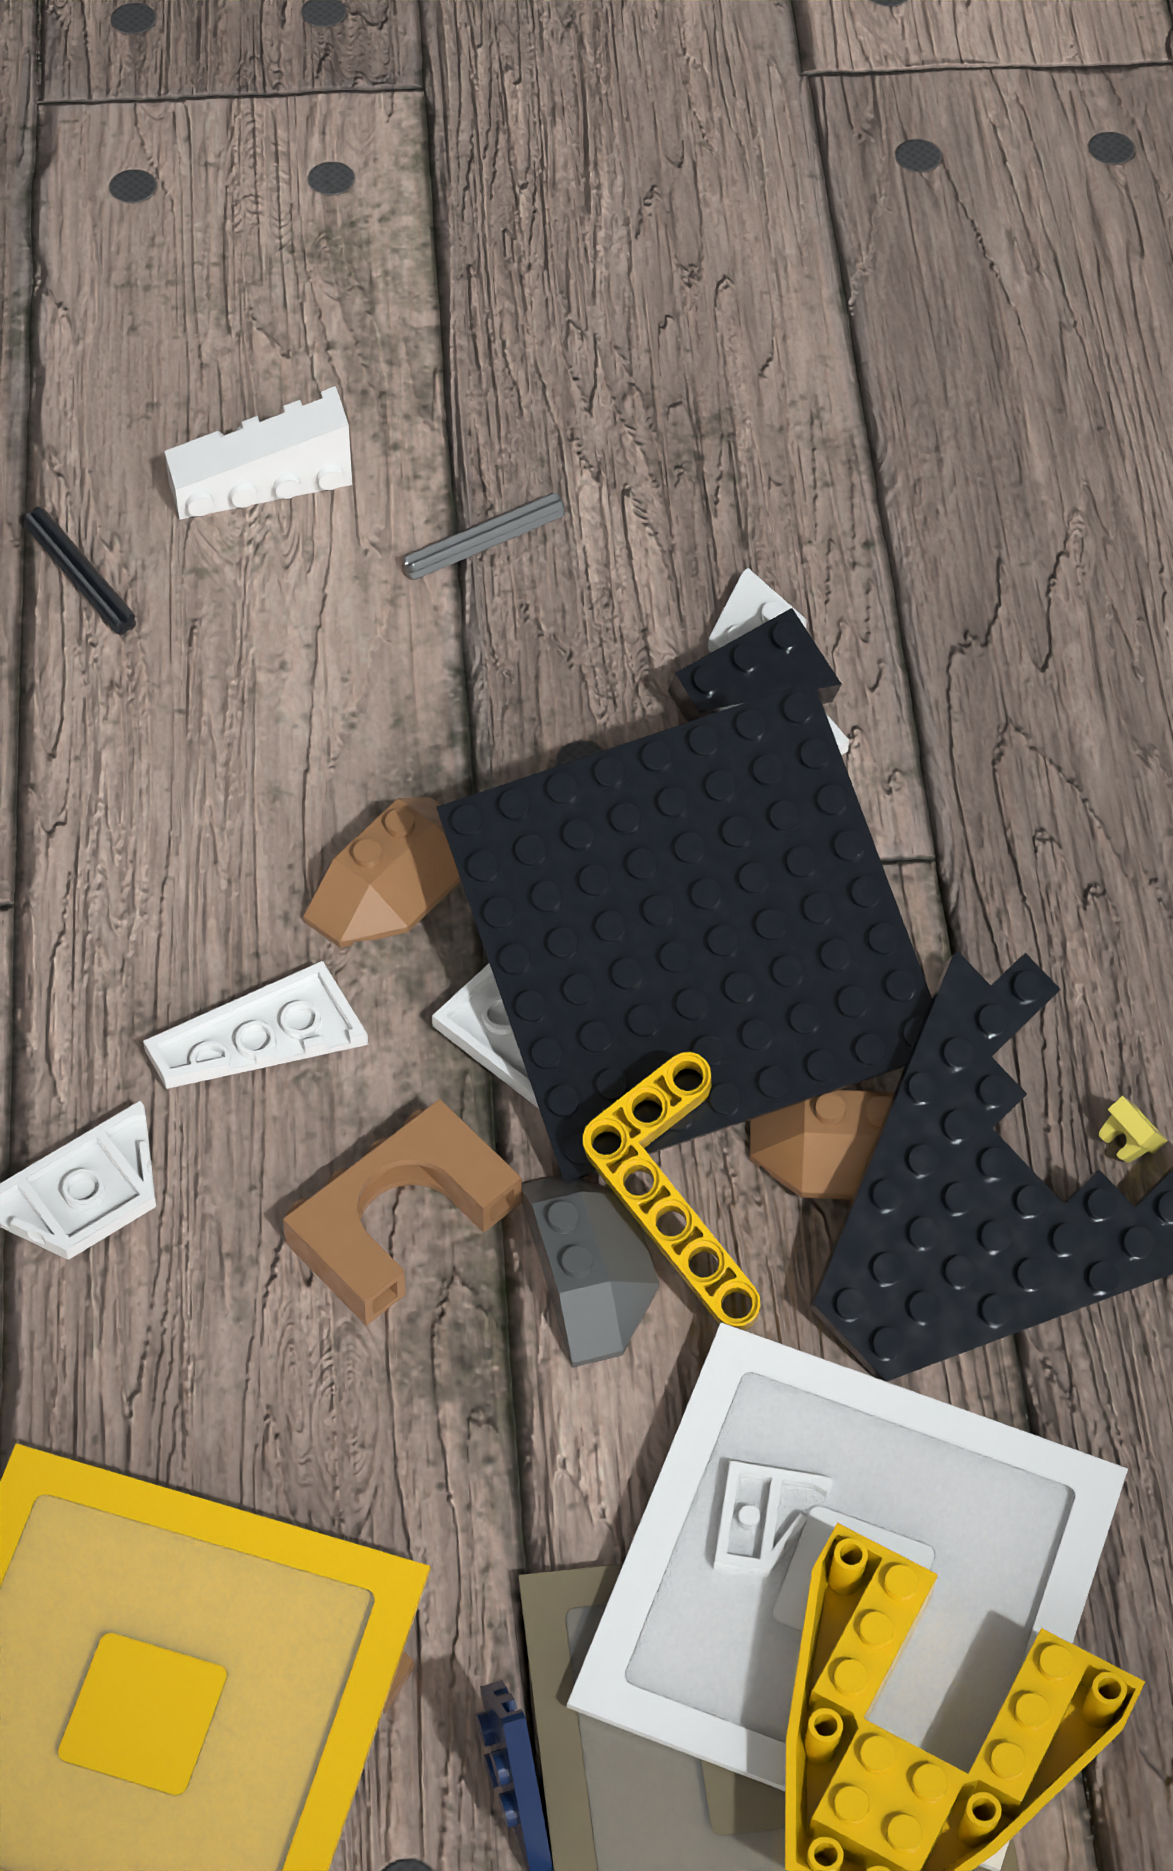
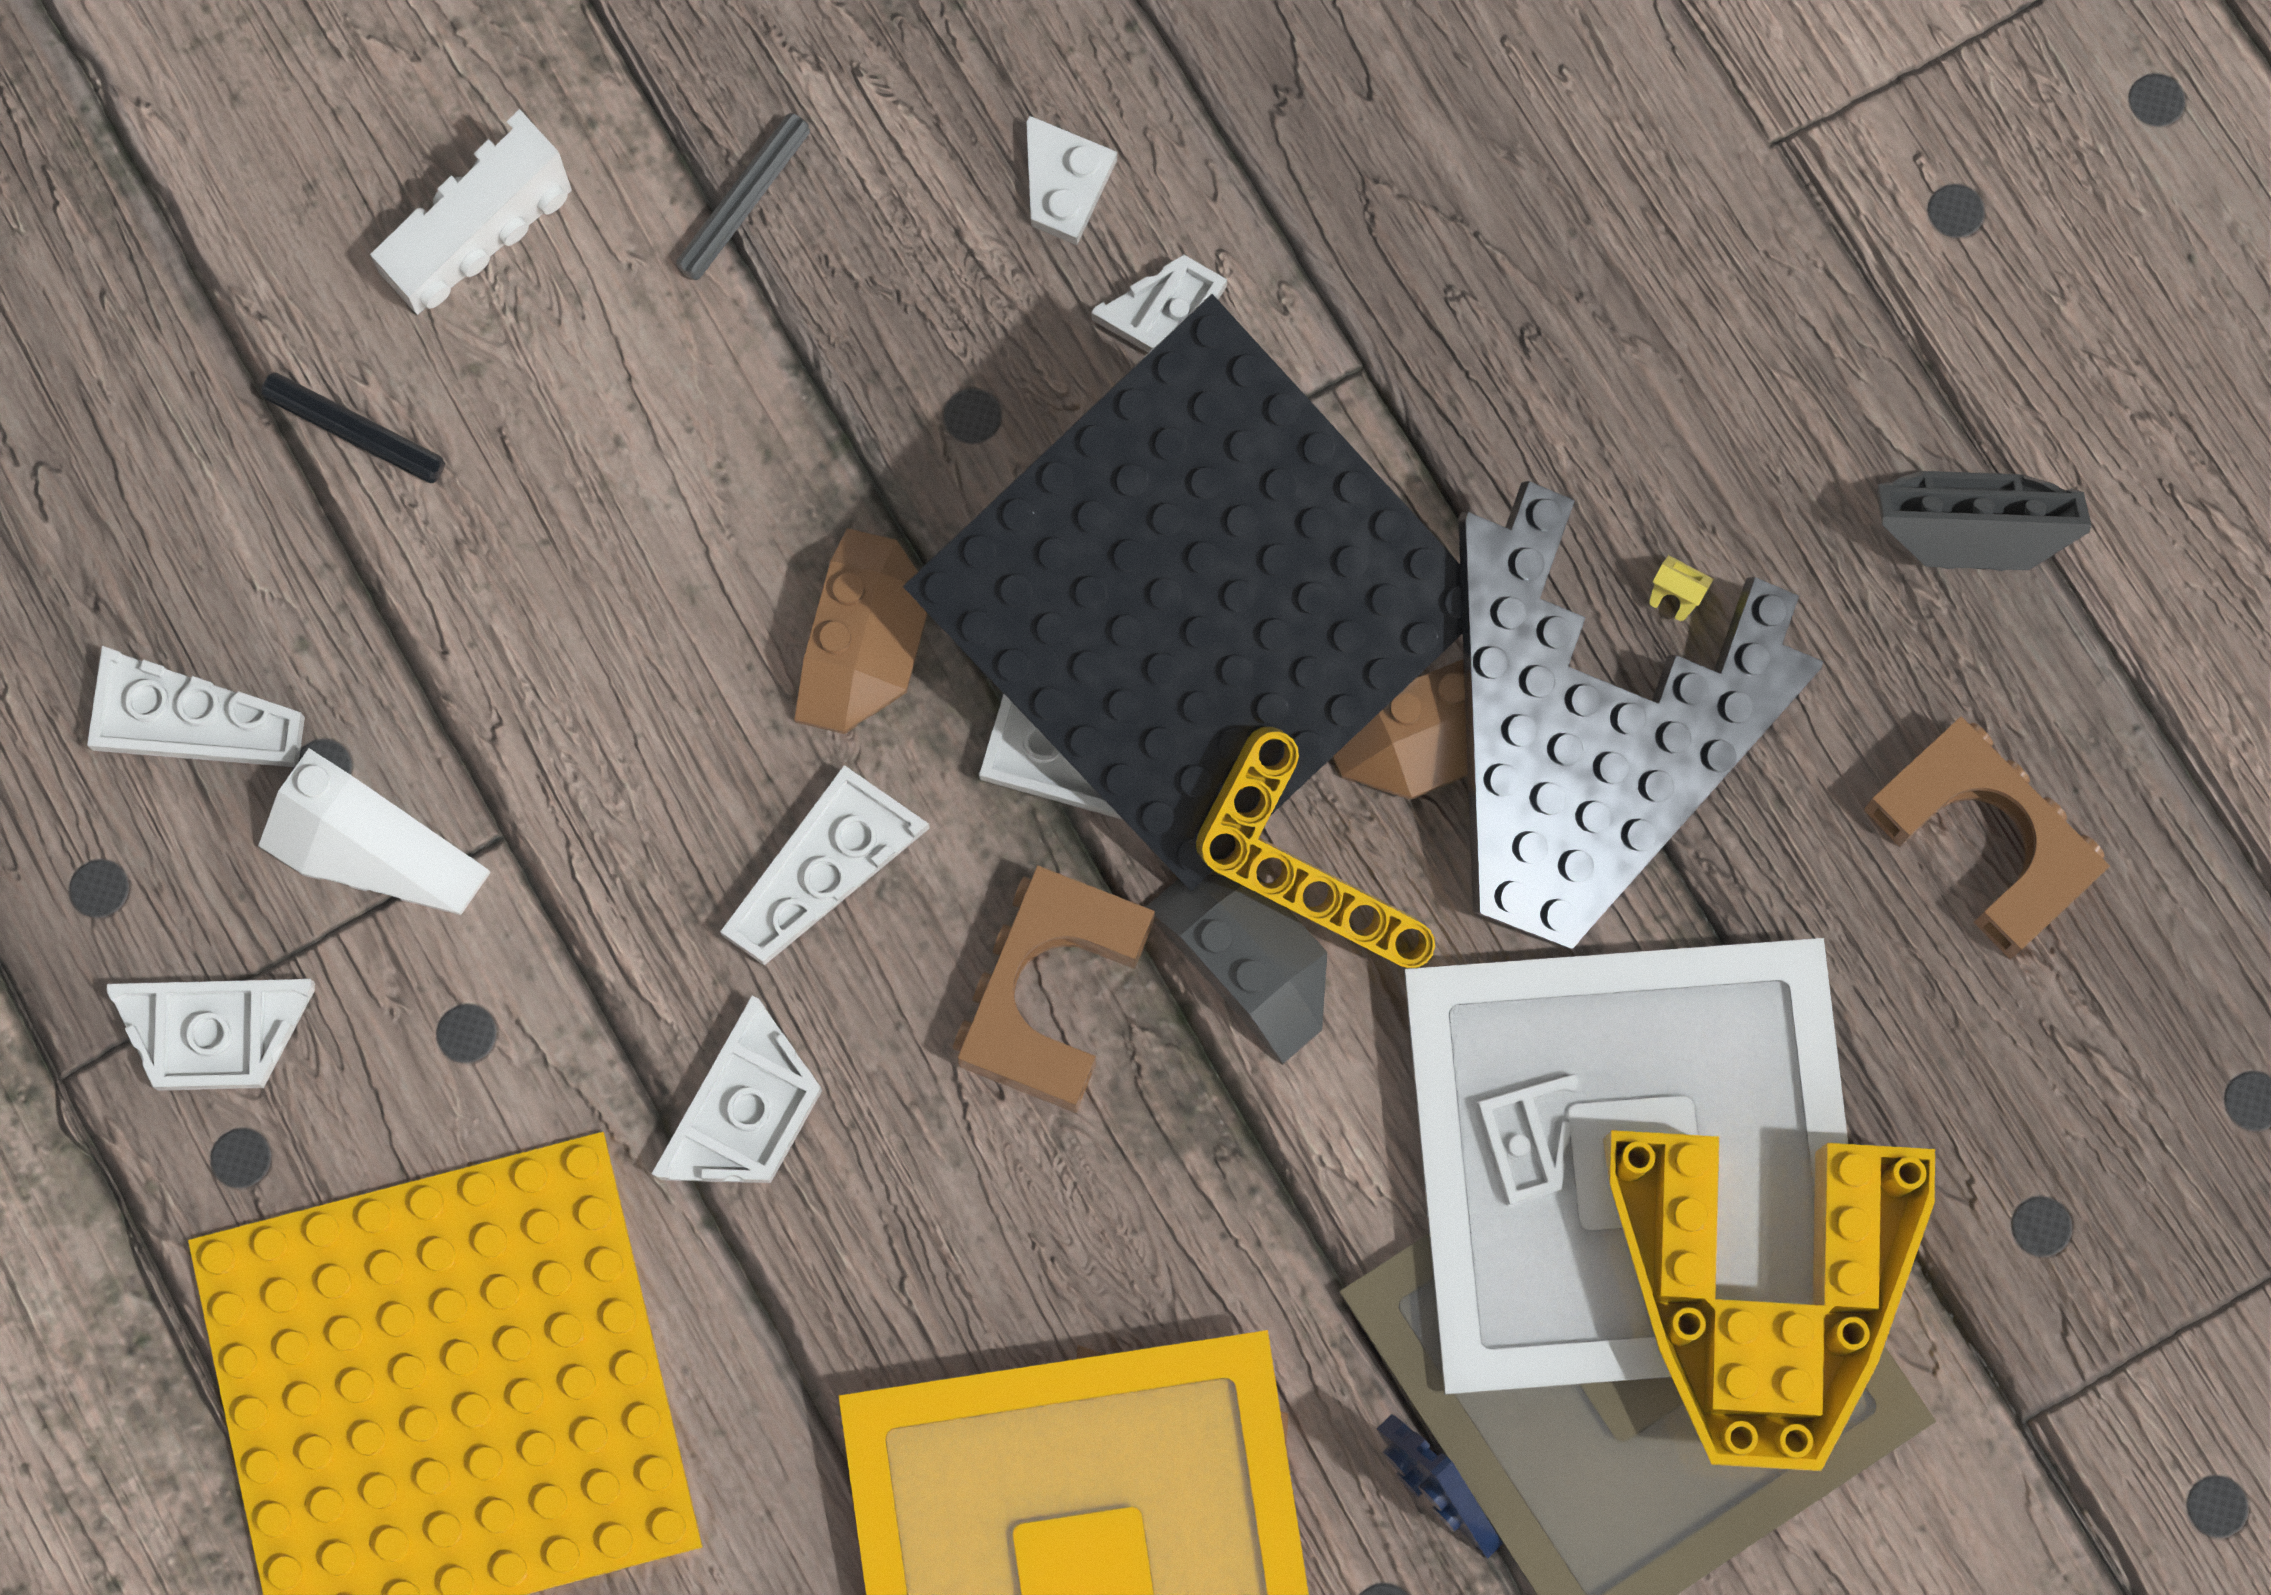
camera: 25 degrees left, 20 degrees up
(752, 667) = (1103, 247): black wedge -> none

